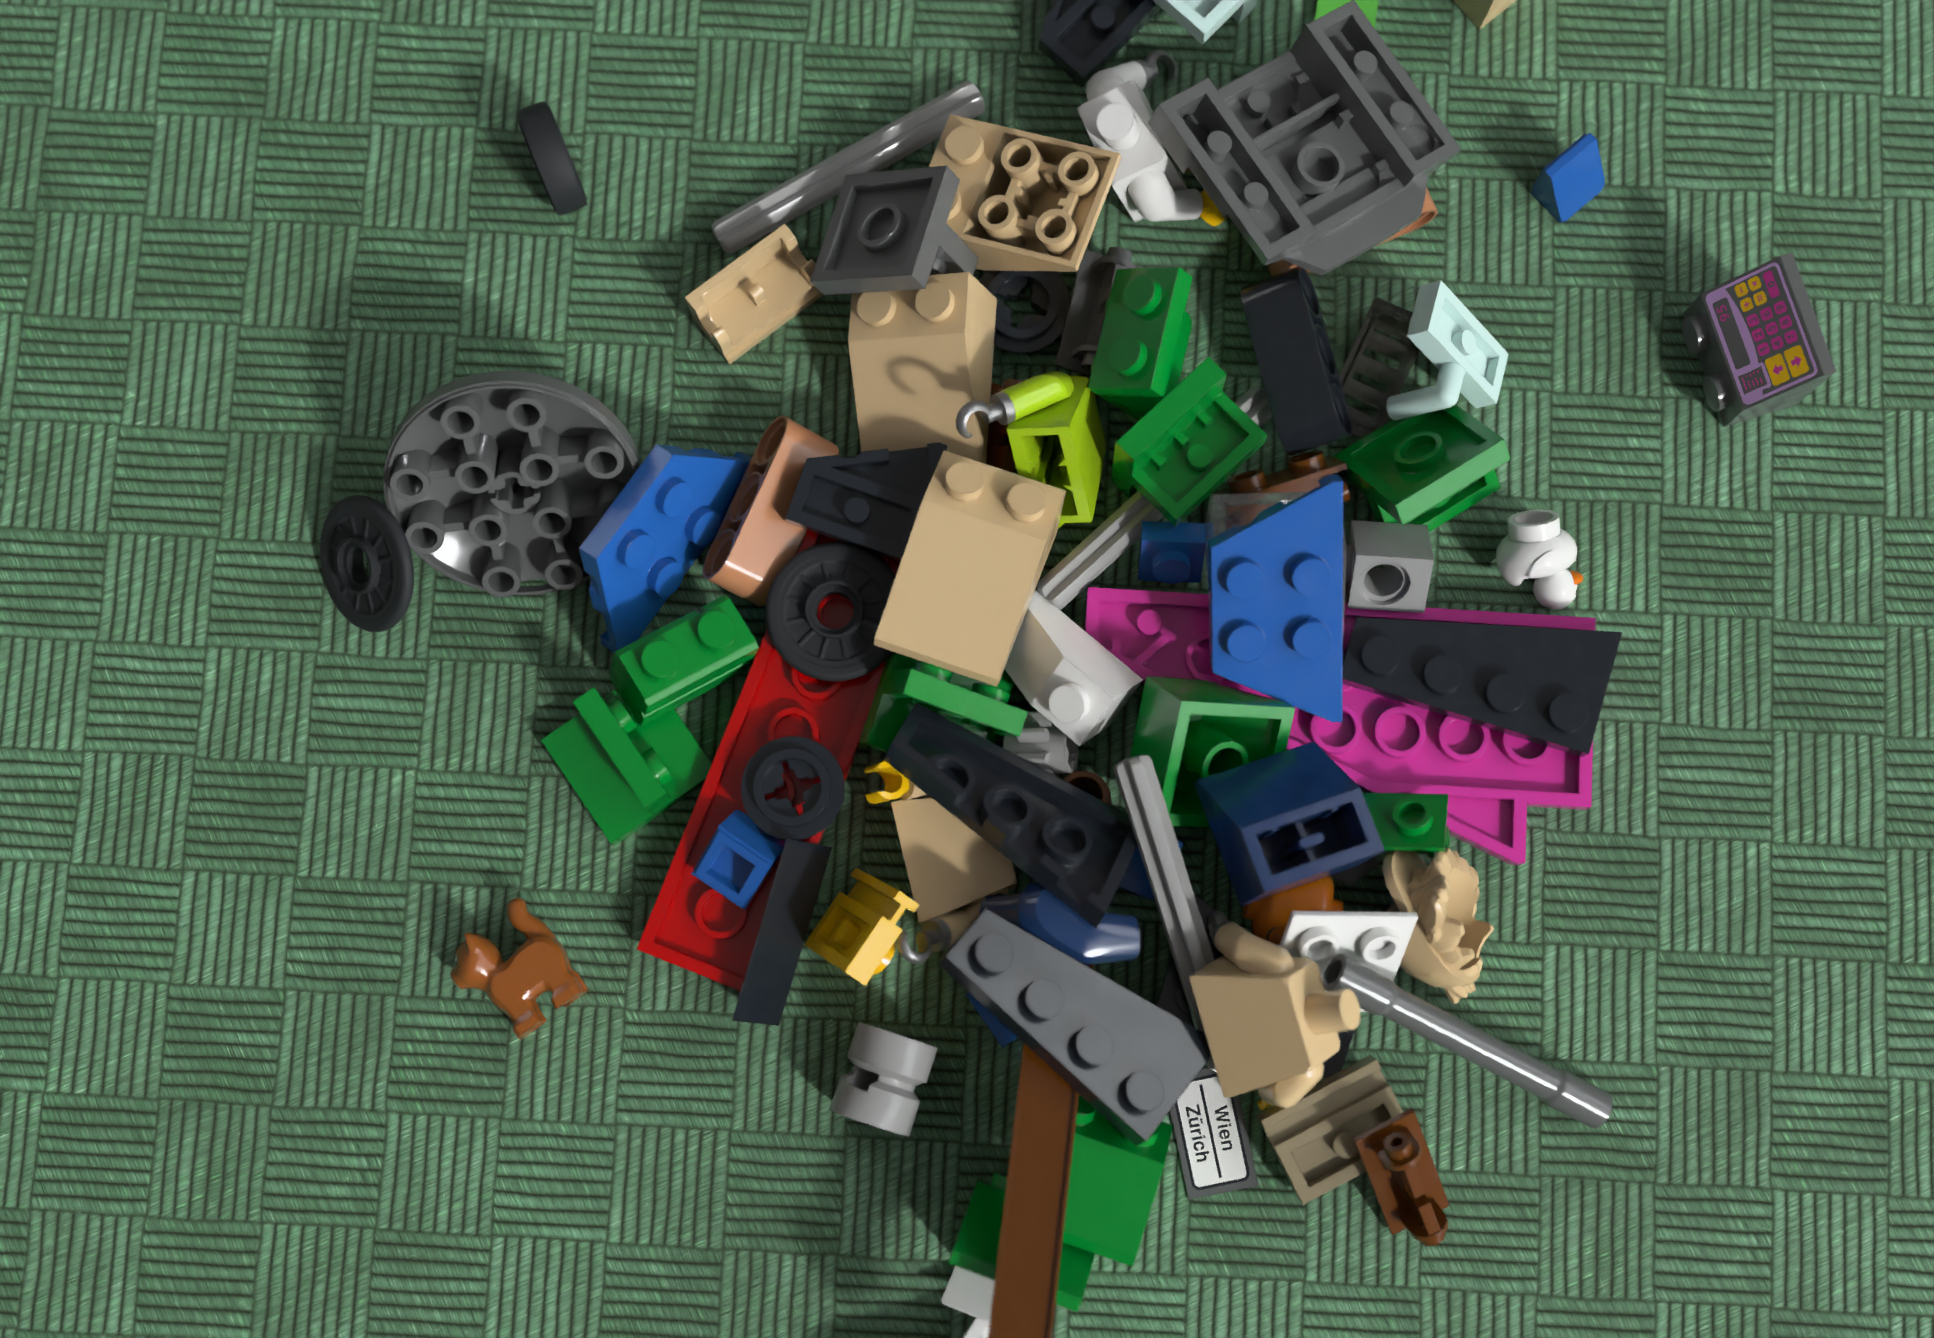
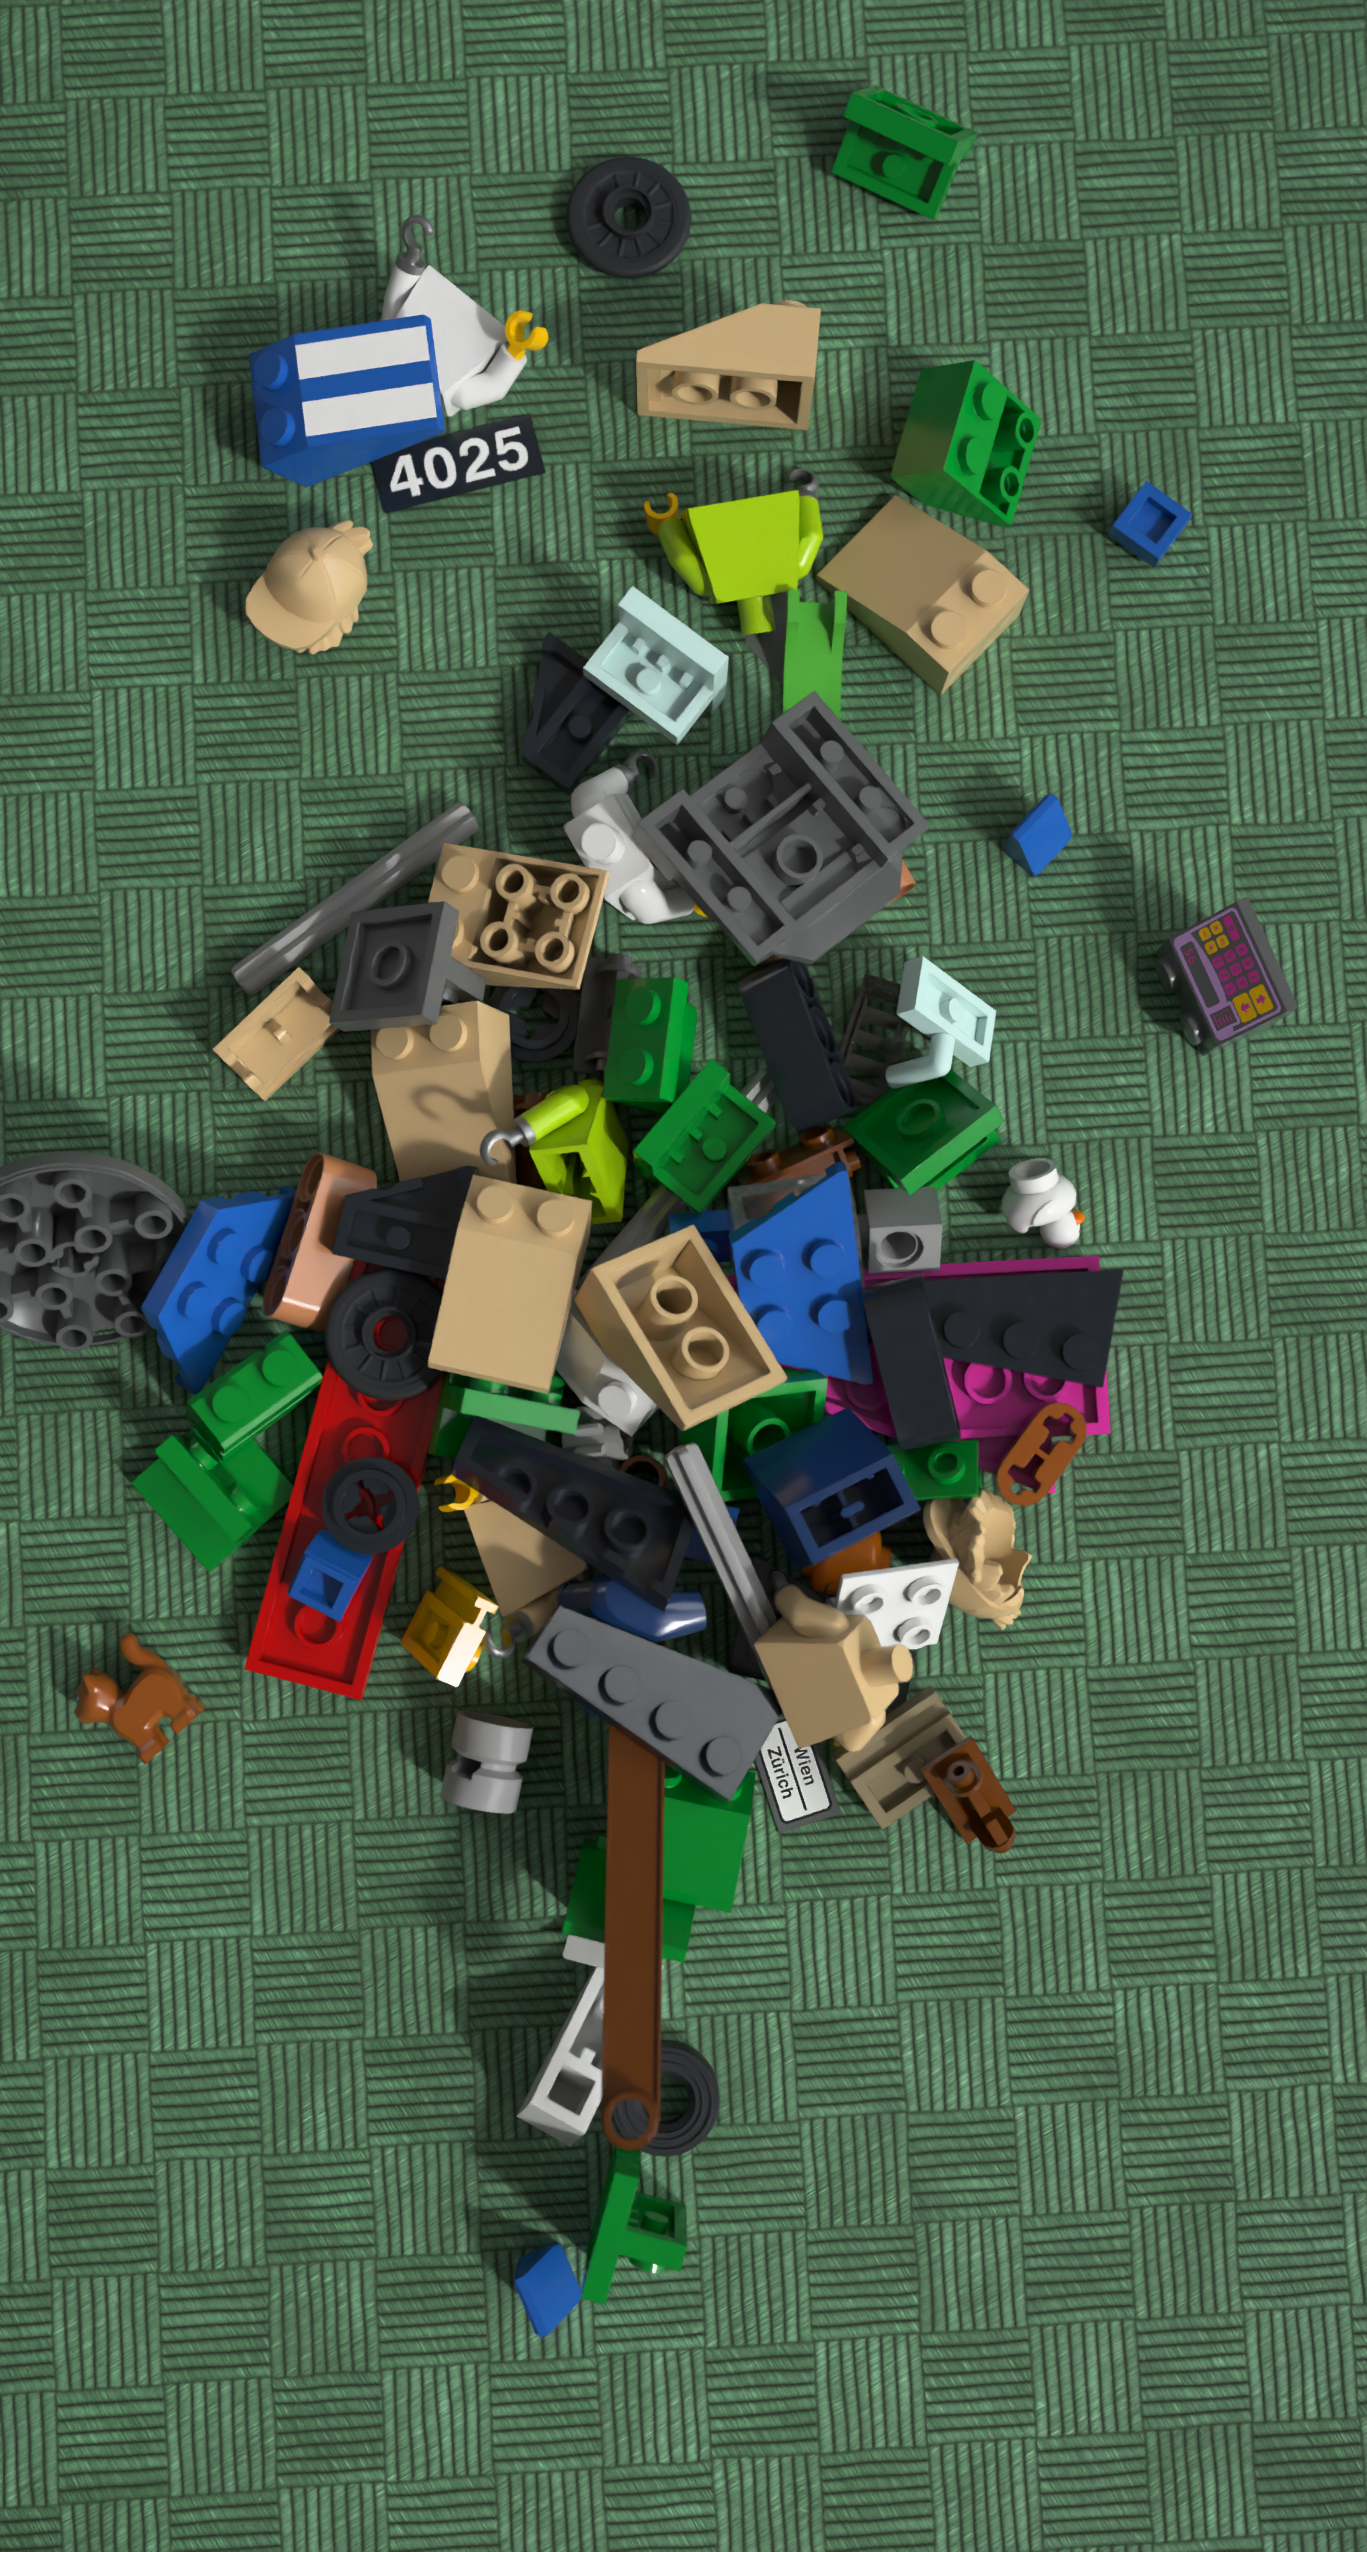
camera: 15 degrees left, 5 degrees up
(551, 158) = (69, 925): black tyre -> none
(782, 932) = (377, 1638): black sticker -> none
(1143, 630) = (678, 1328): none -> tan slope
(1387, 700) = (911, 1362): none -> black beam
(1525, 828) = (1050, 1464): none -> dark orange beam
(1554, 1086) = (933, 1640): dark grey piece -> none

